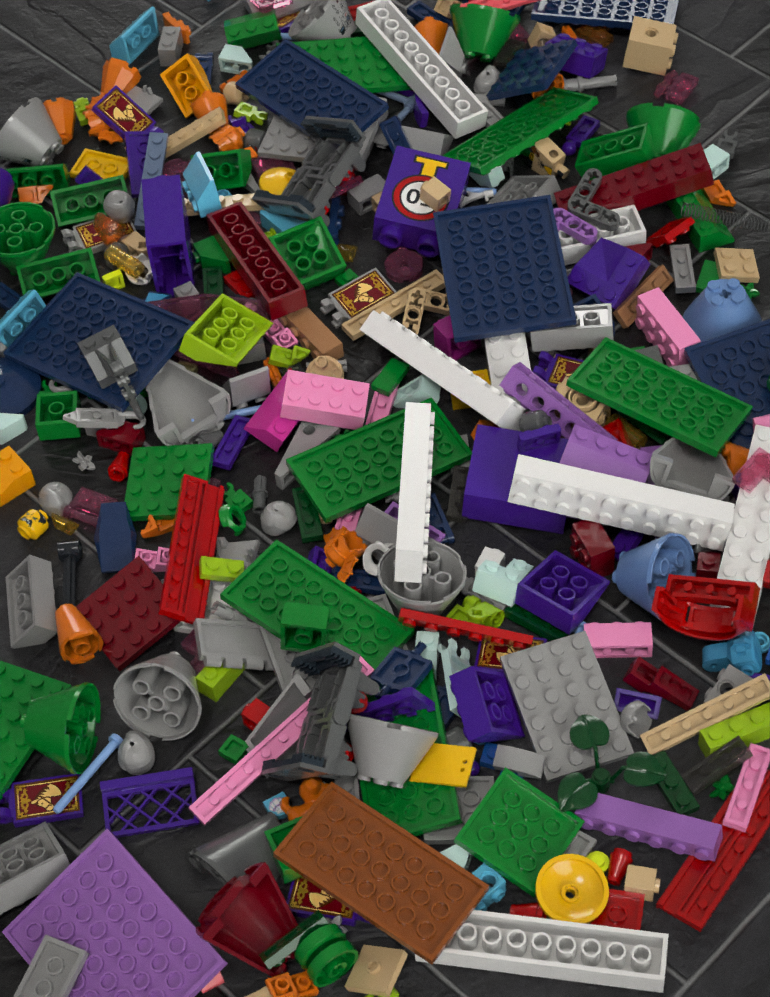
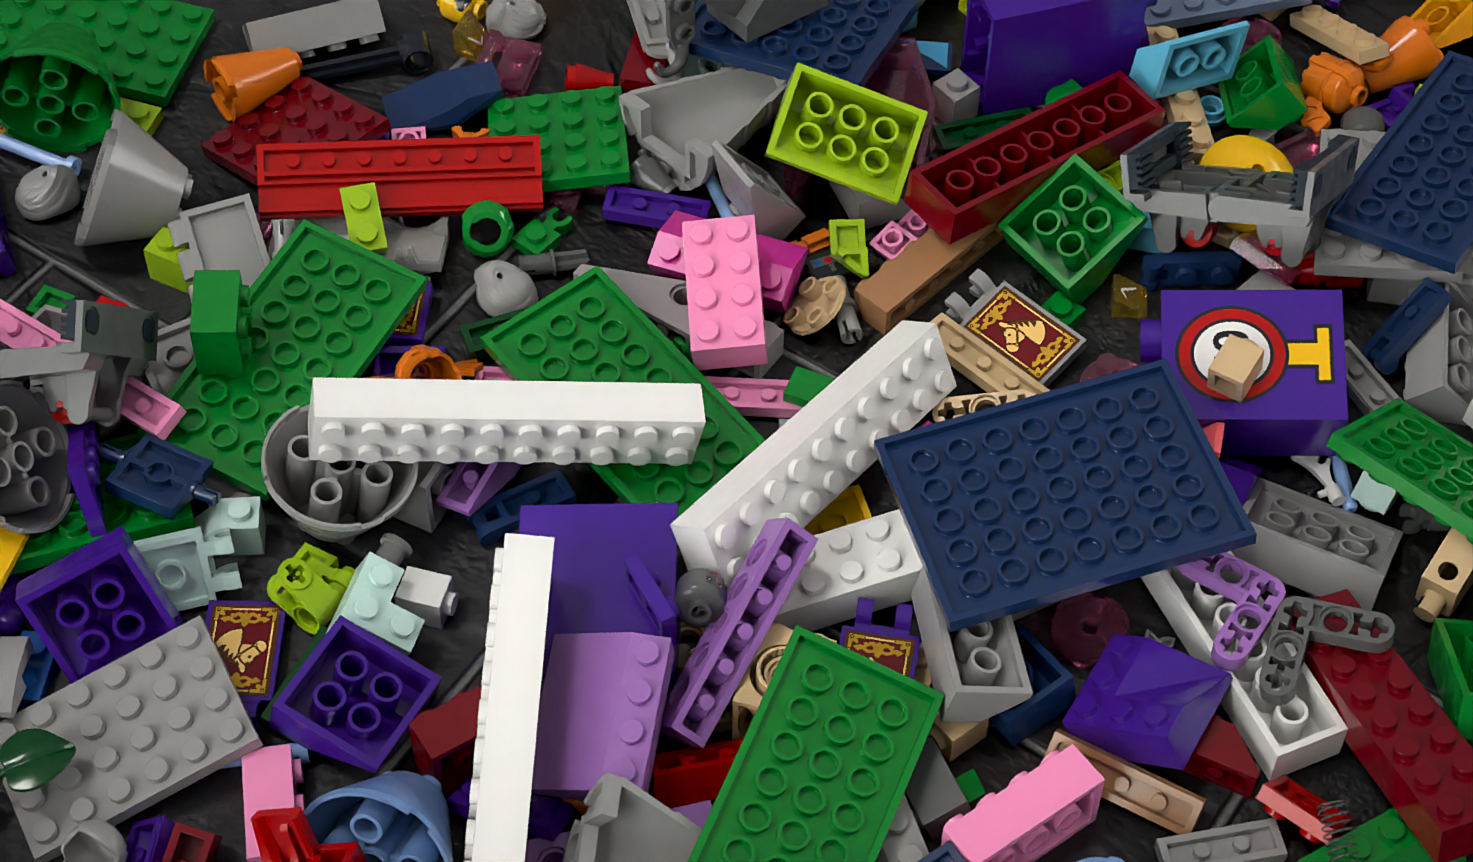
camera: 75 degrees right, 0 degrees up
(84, 462) = (592, 37): light grey plant -> none
(456, 627) = (253, 574): red plate -> none

